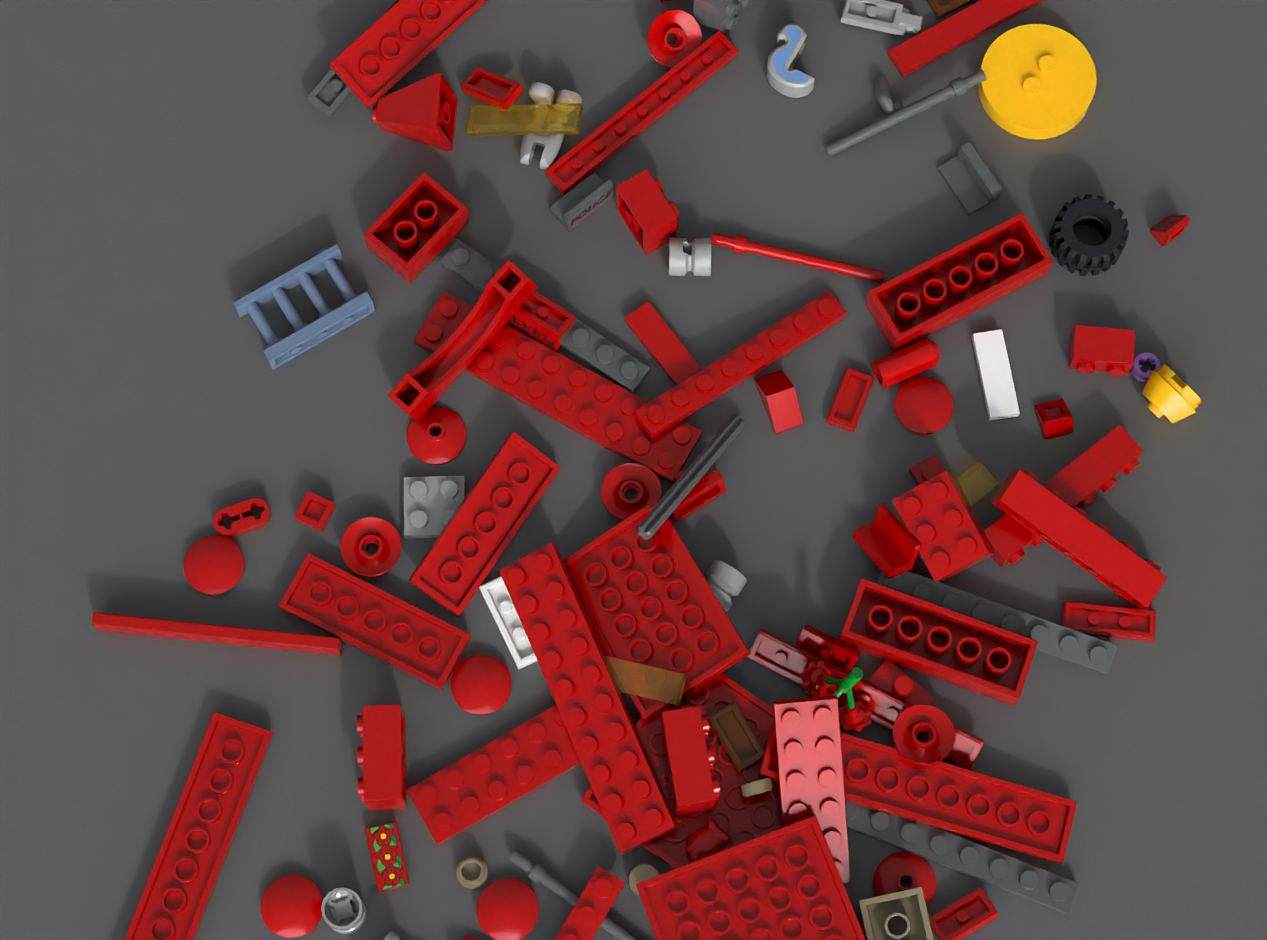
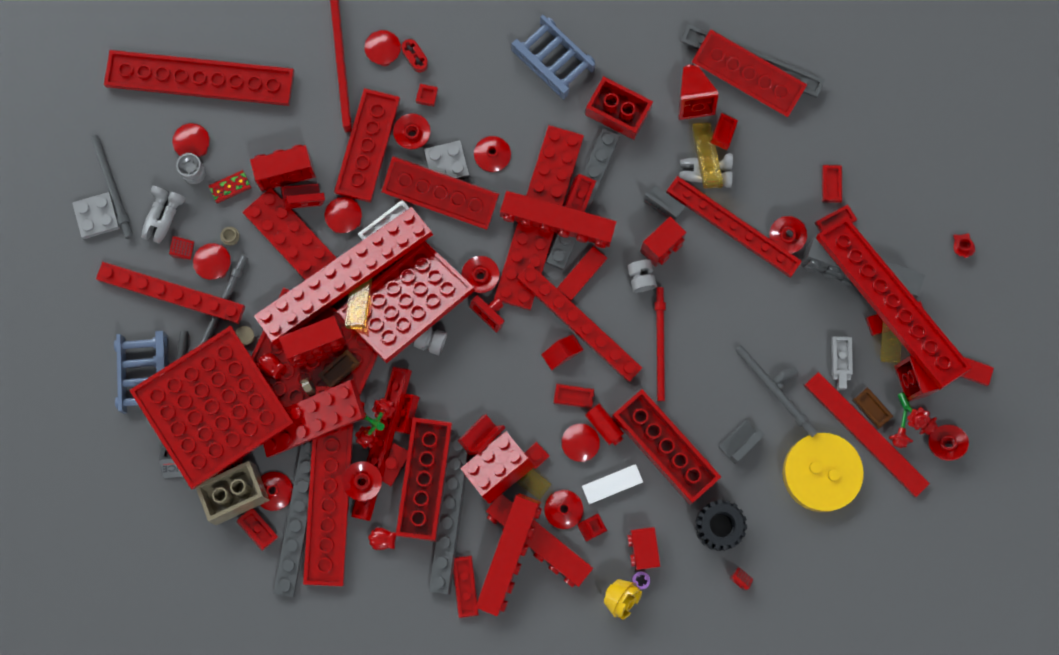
camera: 75 degrees right, 5 degrees up
(432, 377) = (574, 163): red arch -> none
(435, 740) = (302, 196): none -> red panel
(574, 355) = (557, 219): none -> red brick
(690, 477) = (493, 305): dark grey axle -> none
(782, 60) = (793, 306): light grey animal -> none
(1006, 460) = (556, 517): none -> red dish
(1013, 729) = (382, 539): none -> red animal

